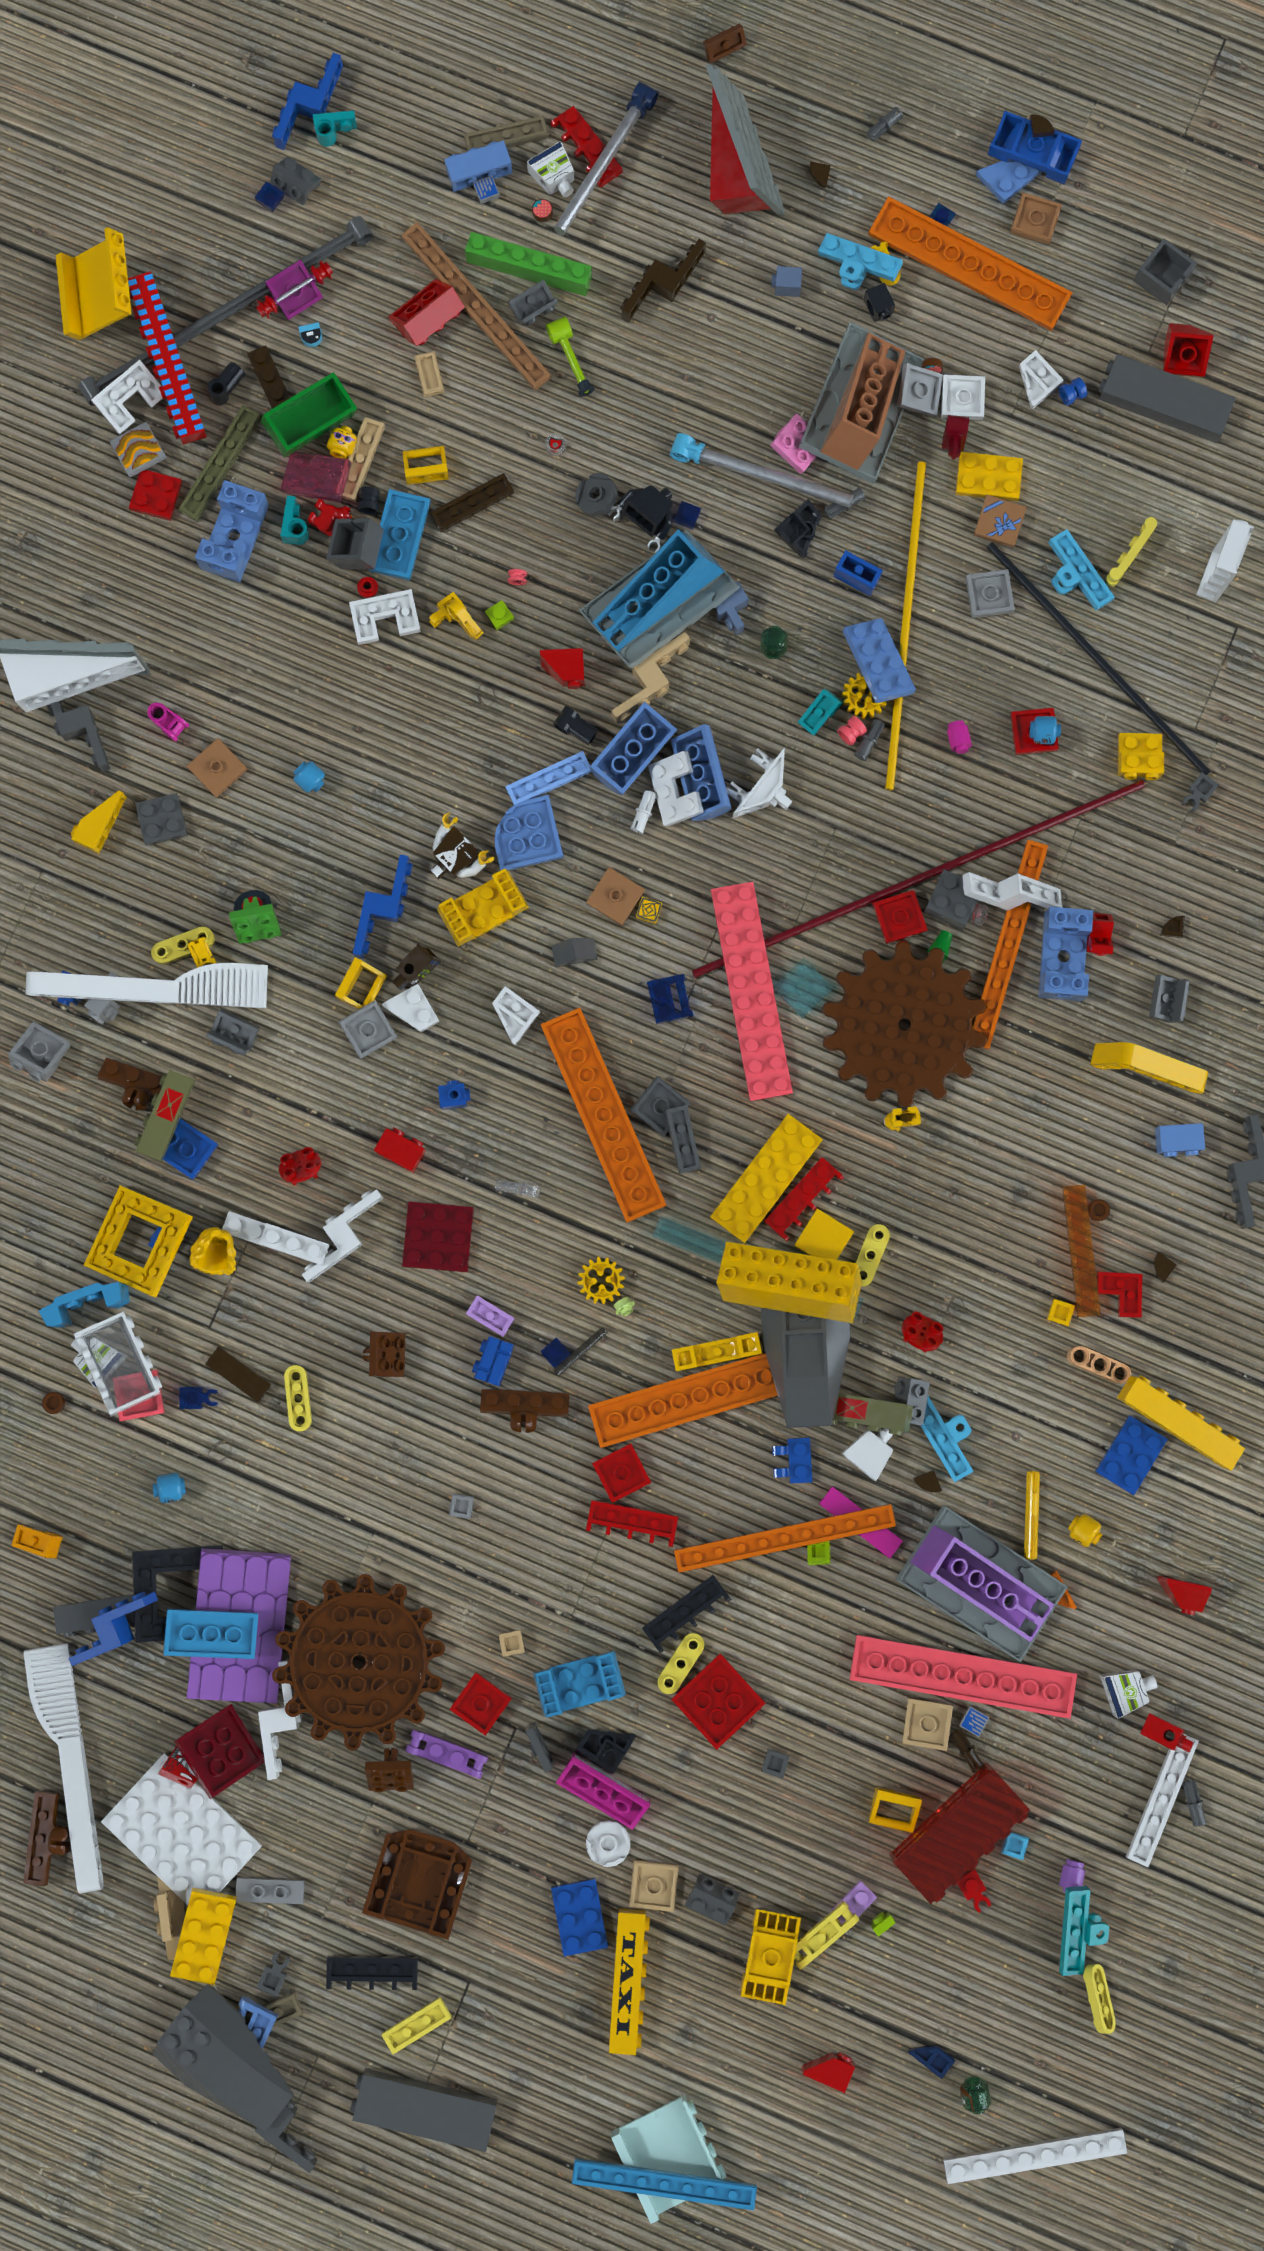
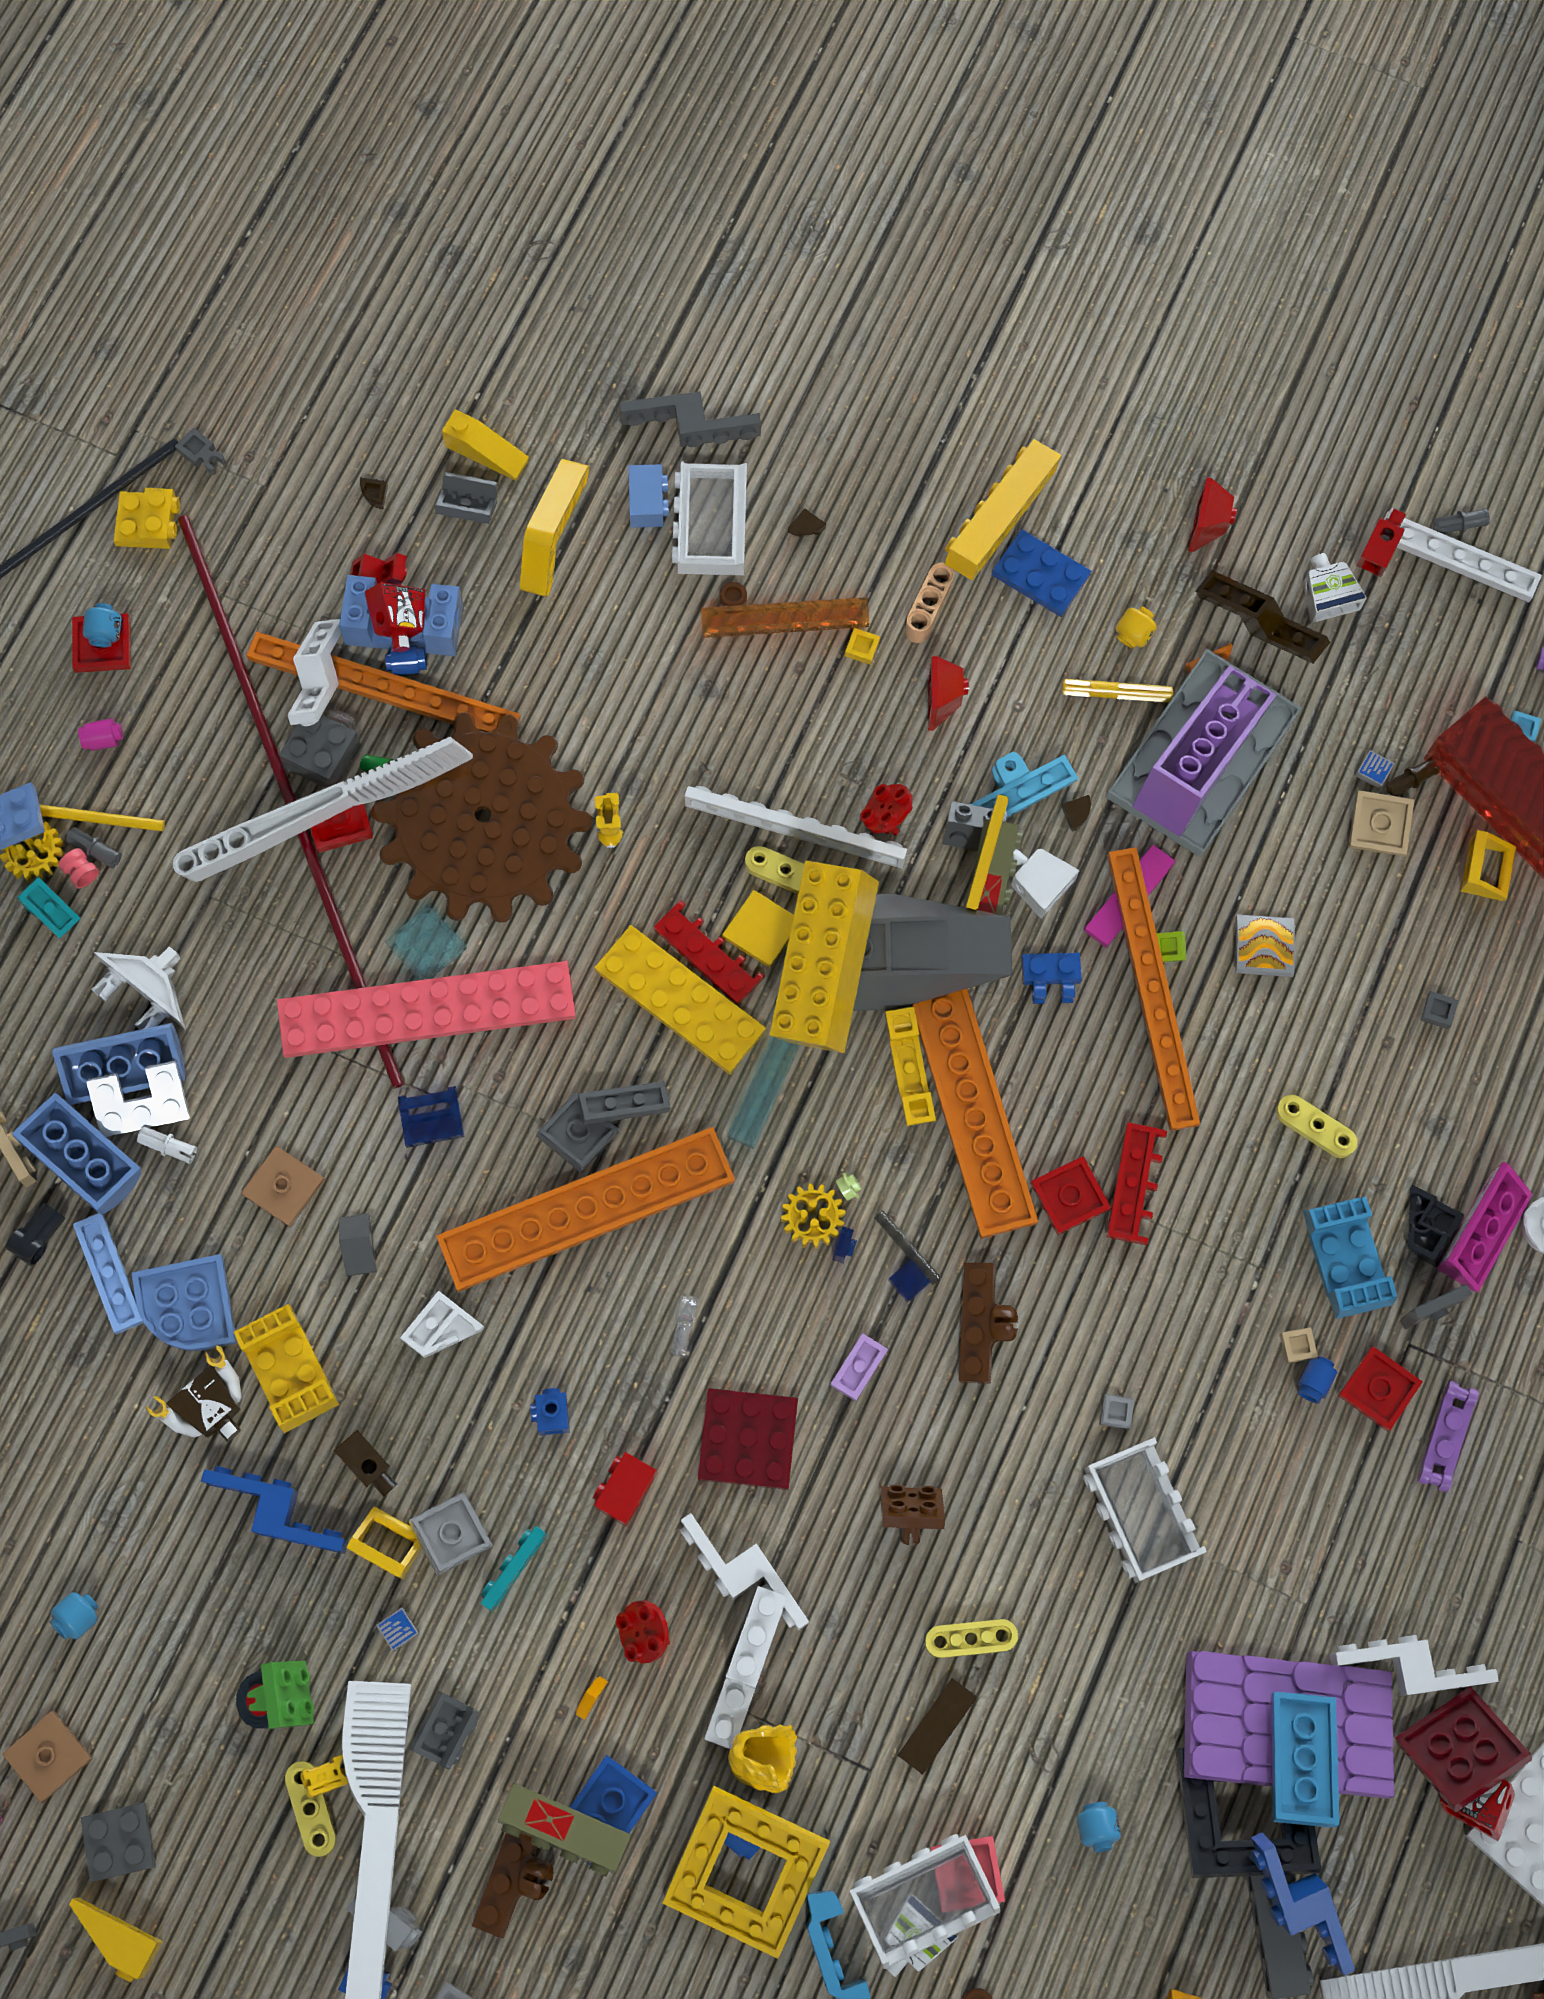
camera: 90 degrees left, 10 degrees down
(194, 1397) = (970, 1791): clear blue plate -> none
(259, 1133) = (591, 1697): none -> light orange tile
(302, 996) = (397, 1629): none -> tile
(344, 1073) = (512, 1568): none -> teal plate
(367, 1696) = (1379, 1542): reddish brown plate -> none
(388, 1523) = (1142, 1511): none -> clear window
(389, 1773) = (1480, 1510): reddish brown plate -> none
(412, 1008) = (423, 1470): white wing -> none
(486, 1655) = (1316, 1379): none -> blue brick
(493, 1360) = (920, 1363): blue brick -> none
(579, 1305) = (845, 1245): none -> clear blue plate
(649, 910) = (305, 1142): tile -> none
(684, 1610) = (1250, 1118): black hinge -> none
(718, 1701) = (1363, 1079): red plate -> none
(823, 1627) = (1264, 945): none -> slope
(879, 1406) = (987, 852): none -> yellow tile
(890, 882) = (311, 810): none -> white piece
(904, 1271) = (787, 824): none -> white plate
(963, 1676) = (1320, 783): coral plate -> none
(1022, 1377) = (945, 690): none -> red slope
(1030, 960) = (406, 662): none -> blue brick
(1063, 949) = (396, 612): none -> red torso
(1096, 1632) = (1262, 616): none -> dark brown bracket
(1127, 1287) = (834, 564): red plate -> none
(1163, 1189) = (710, 519): none -> window
(1216, 1010) = (483, 445): none -> yellow slope

